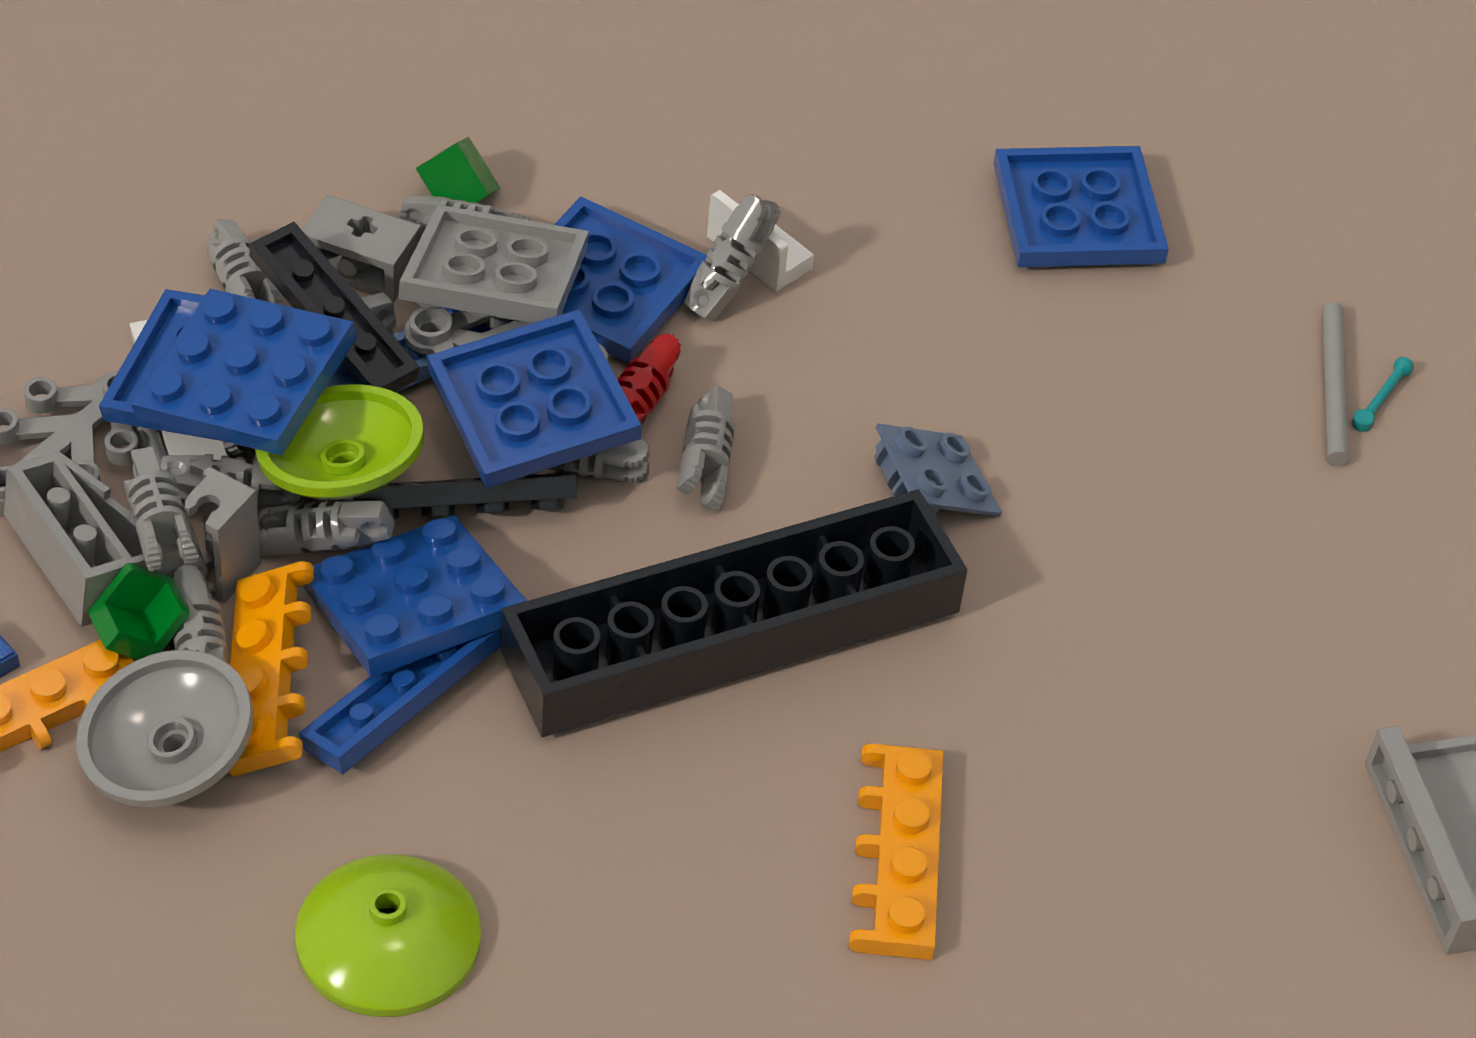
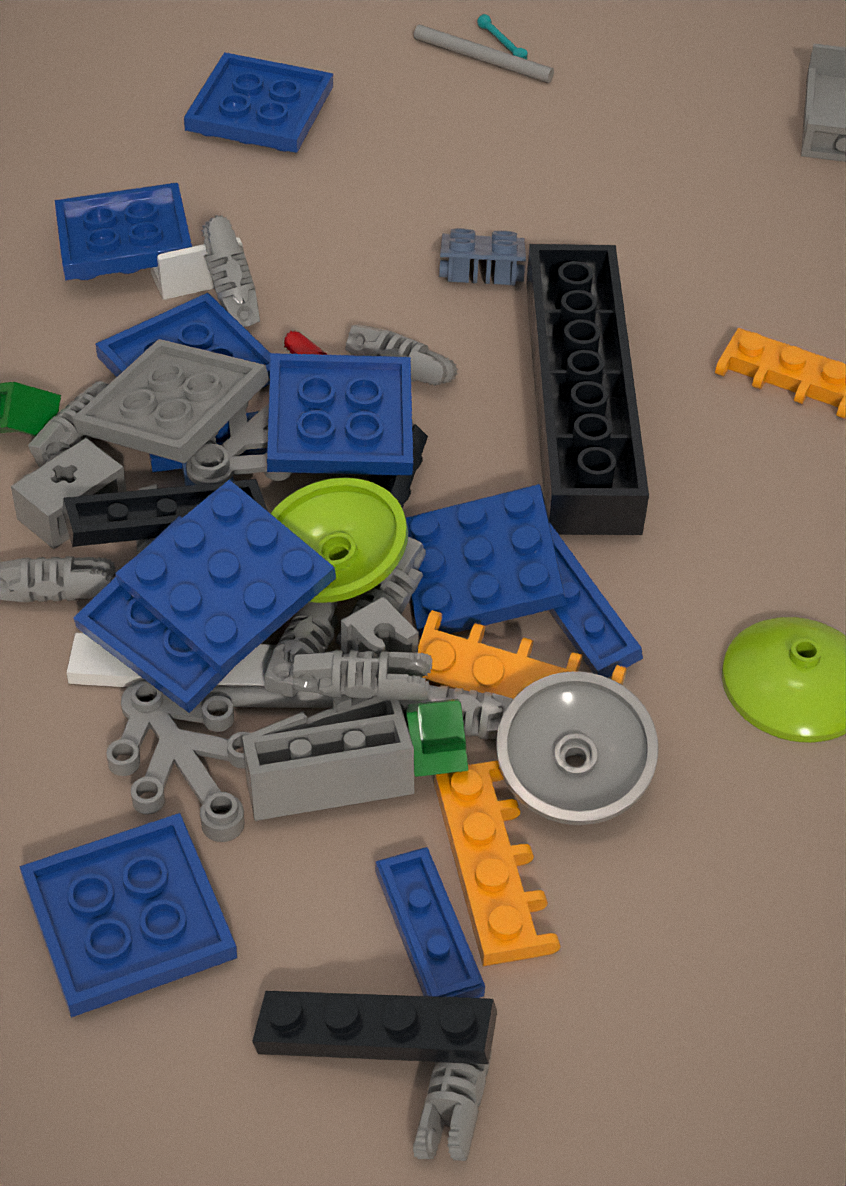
camera: 65 degrees left, 0 degrees up
(772, 153) = (120, 230): none -> blue plate

